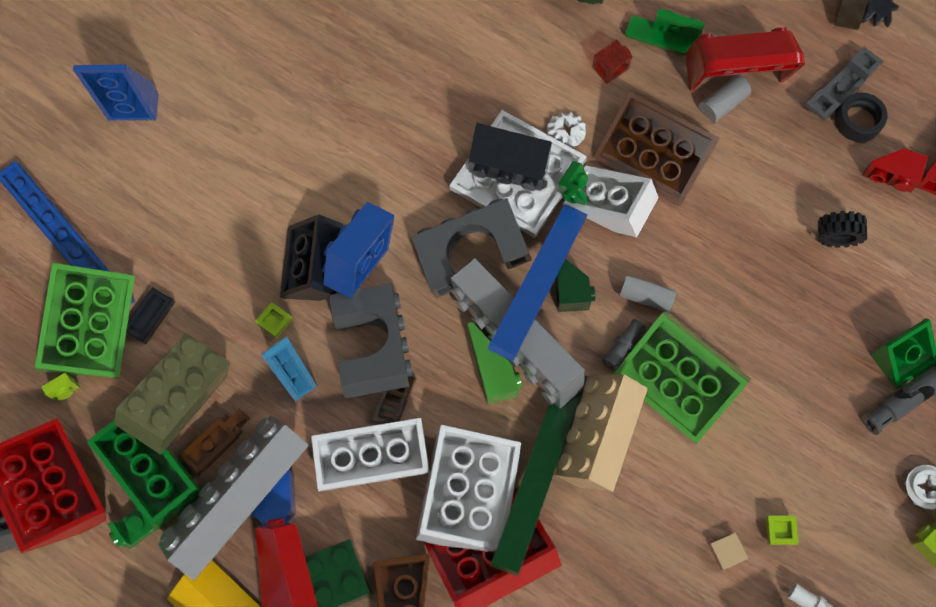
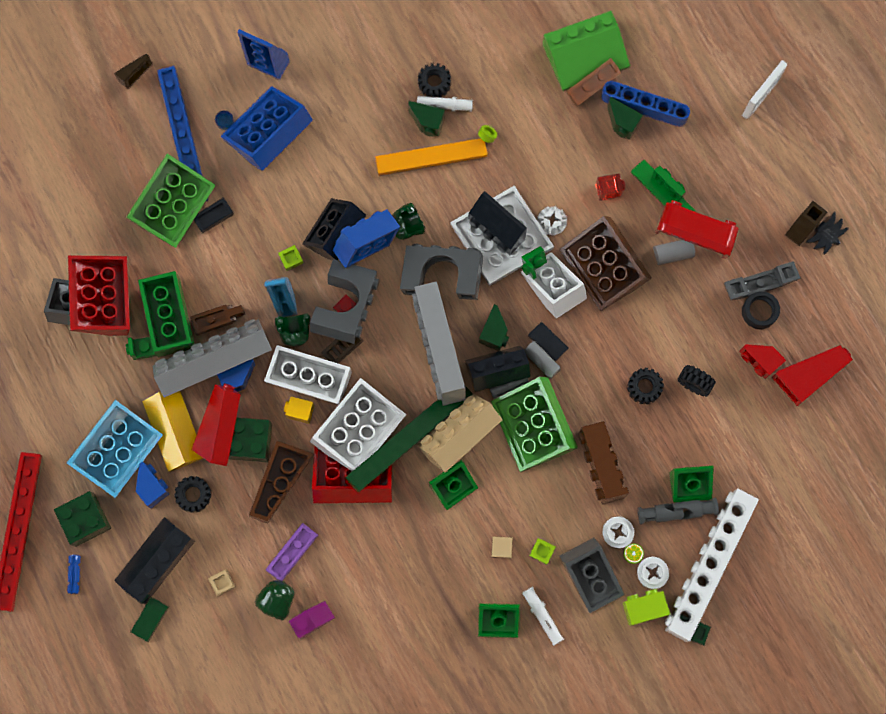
camera: 25 degrees right, 5 degrees up
(60, 387) = (136, 236): lime plate -> none
(109, 195) = (224, 119): none -> clear blue tile
(168, 179) = (267, 127): none -> blue slope
(172, 393) = (204, 275): olive brick -> none
(322, 407) = (294, 329): none -> dark green hair
(340, 26) = (434, 71): none -> black tyre
(356, 81) = (428, 118): none -> dark green slope
(370, 56) = (447, 103): none -> white pin
(371, 344) = (344, 304): none -> red plate
(380, 505) = (299, 410): none -> yellow brick
(384, 123) = (431, 156): none -> light orange tile
(401, 206) = (409, 221): none -> dark green hair
(438, 67) = (487, 134): none -> lime tile
(494, 370) = (414, 363): bright green slope -> none
(537, 283) = (470, 316): blue tile -> none
(603, 328) = (498, 368): none -> black slope
(628, 503) = (453, 485): none -> green slope
(640, 268) = (548, 341): none -> black tile
(793, 254) = (653, 378): none -> black tyre
(793, 382) = (603, 463): none -> reddish brown wedge
(858, 527) = (592, 575): none -> dark grey slope
(863, 449) = (627, 530): none -> white gear
(890, 475) = (633, 553): none -> lime tile

